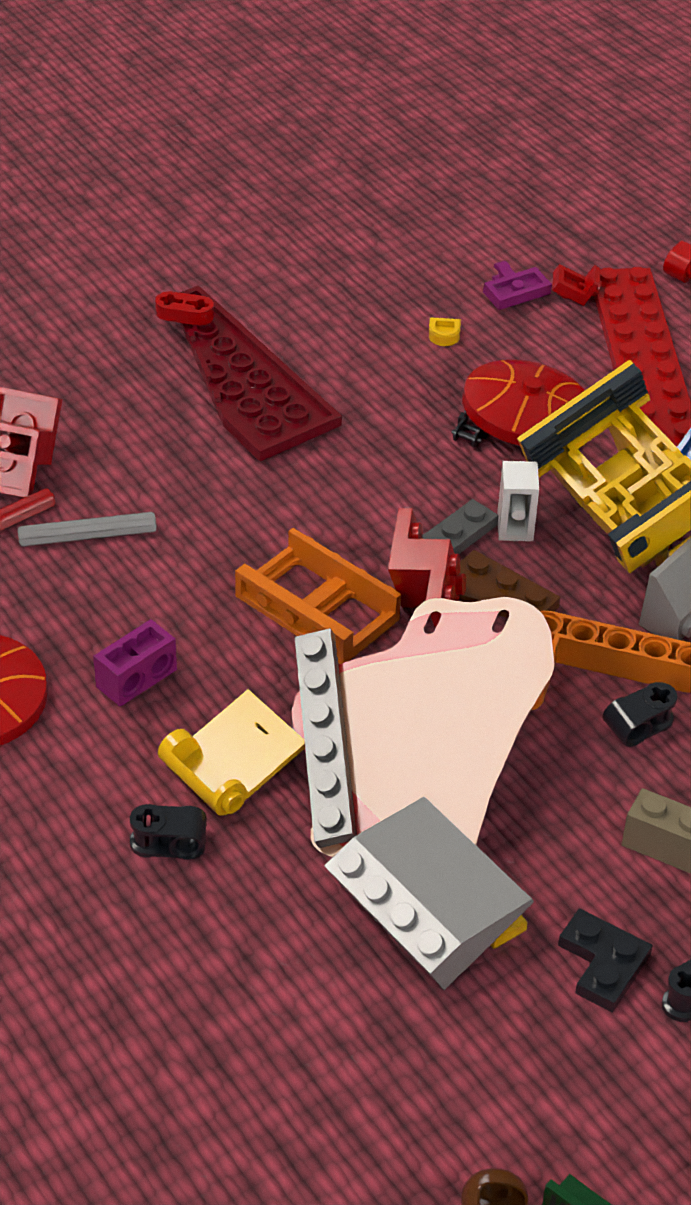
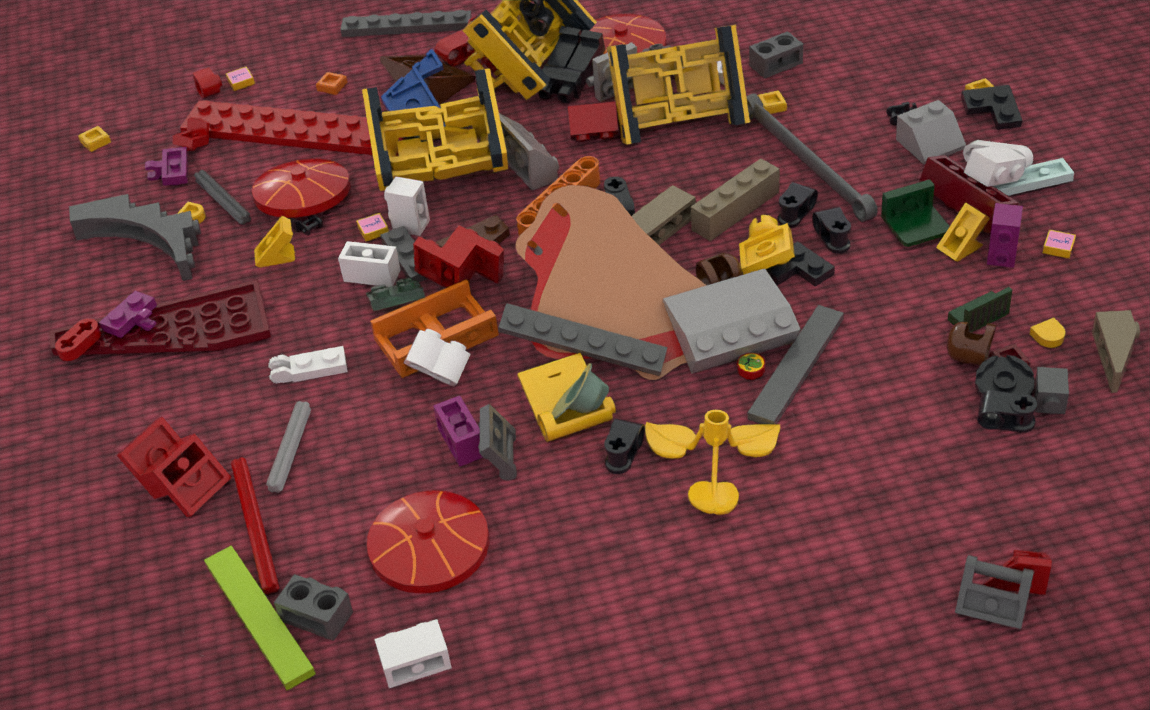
camera: 65 degrees left, 0 degrees up
(123, 691) = (497, 442): none -> dark grey plate
(192, 888) = (674, 440): none -> yellow plant
(218, 757) = (583, 395): none -> sand green piece
(224, 508) = (308, 365): none -> white hinge
(238, 332) = (130, 312): none -> magenta plate
(248, 605) = (437, 358): none -> white brick
(353, 538) = (403, 292): none -> clear green plate
(368, 944) = (751, 366): none -> tile
(390, 998) = (795, 366): none -> dark grey tile
(398, 490) = (369, 264): none -> white brick
(400, 316) = (146, 223): none -> dark grey arch
(409, 417) = (276, 245): none -> yellow slope
(484, 345) = (218, 193): none -> dark grey axle
(485, 489) = (372, 227): none -> tile
(534, 863) = (718, 268): none -> reddish brown helmet
(541, 213) = (94, 138): none -> yellow tile
(601, 759) = (665, 214): none -> dark tan brick
(606, 900) = (766, 245): none -> yellow plate

